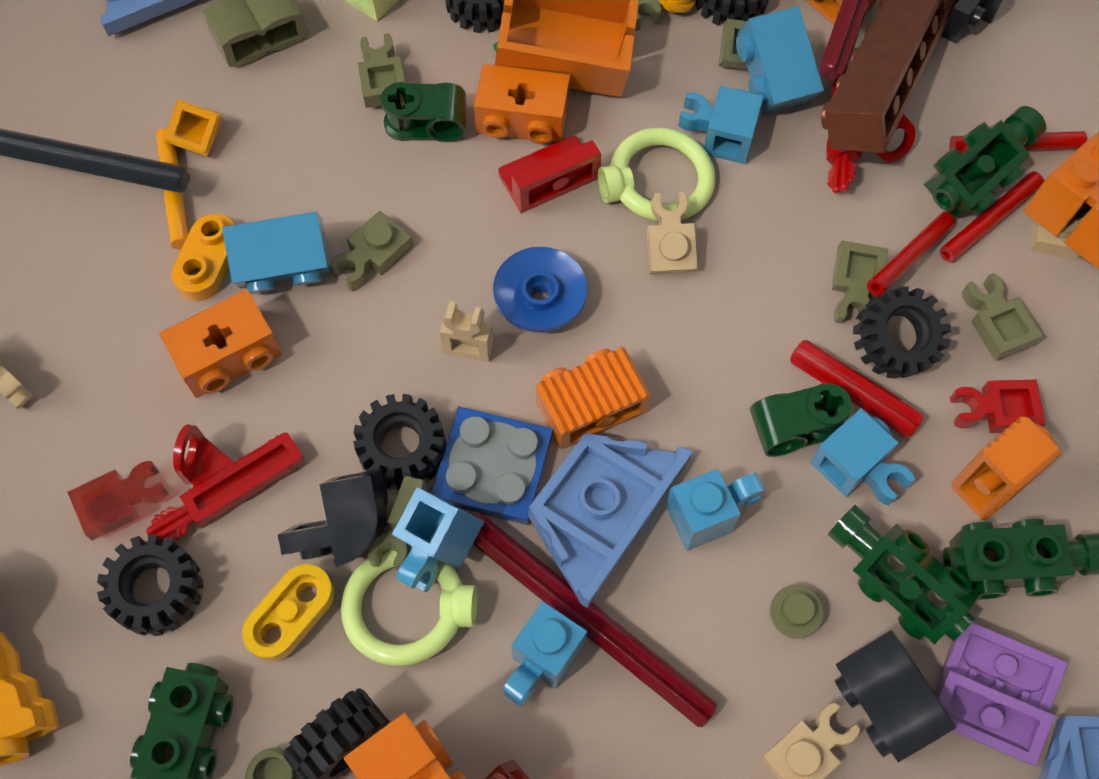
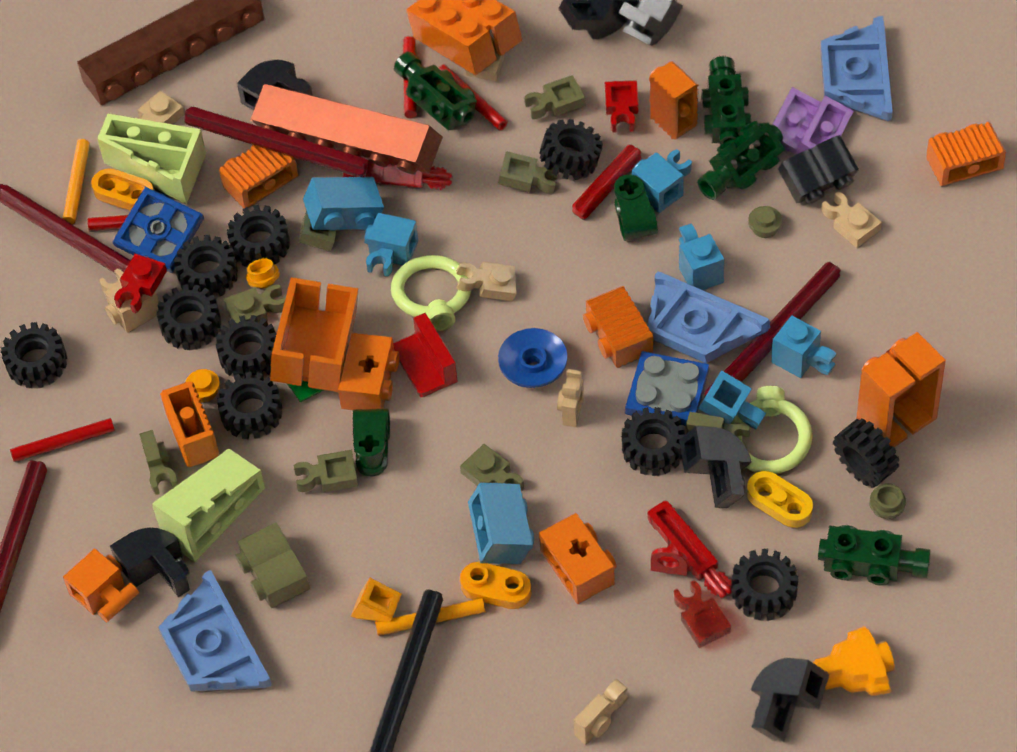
camera: 85 degrees left, 10 degrees down
(910, 254) = (507, 140): red piece -> none

